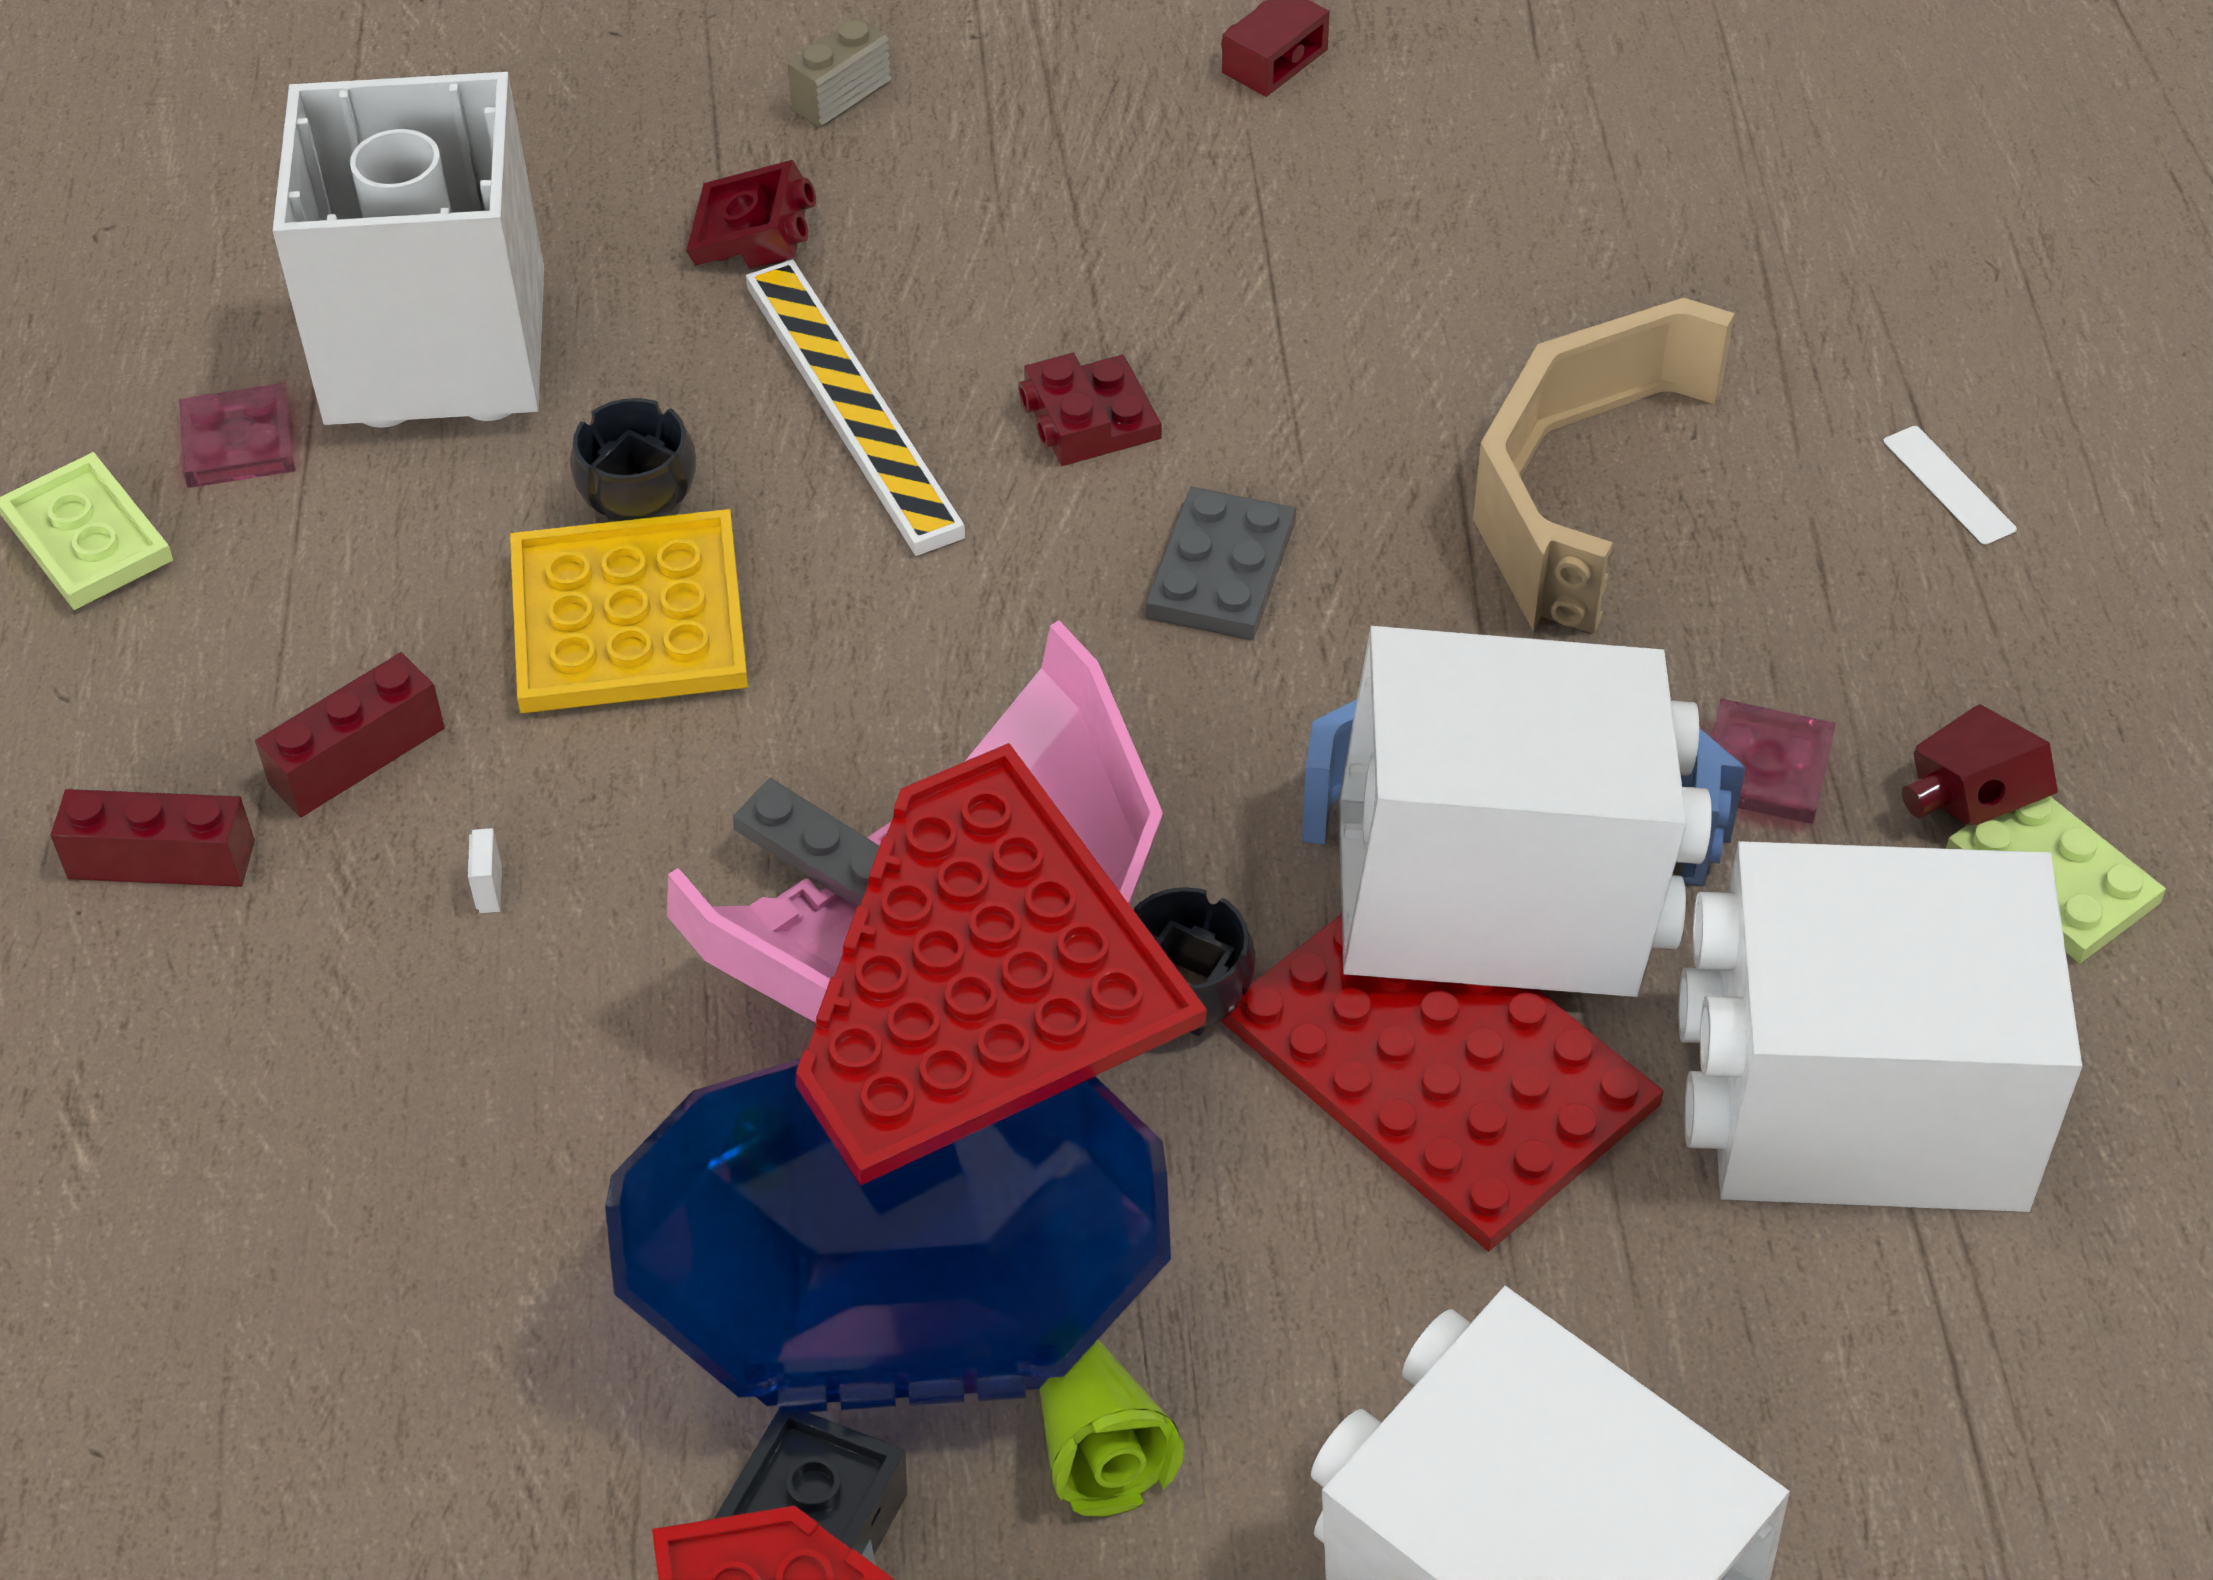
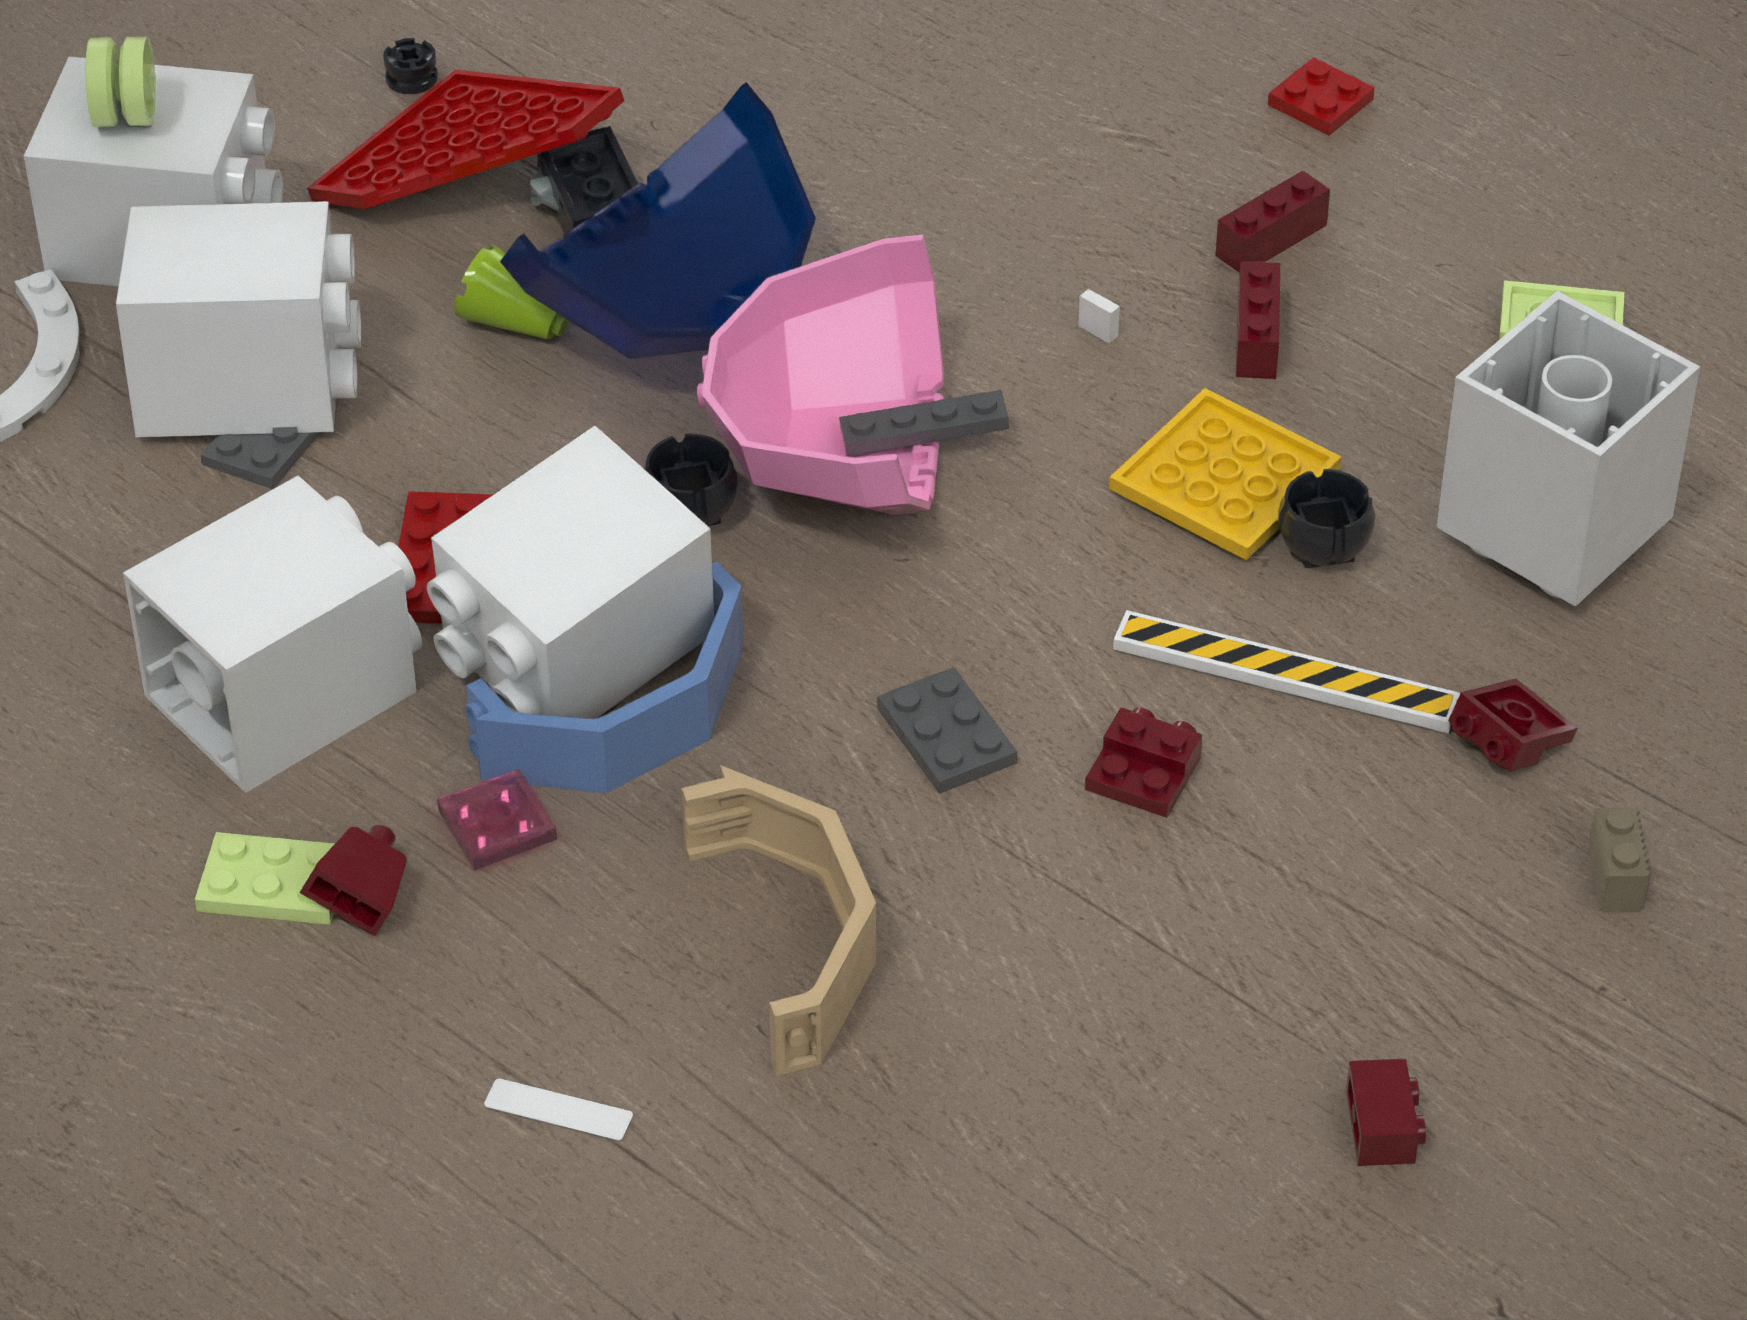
camera: 135 degrees right, 5 degrees down
(980, 972) = (736, 316): red plate -> none

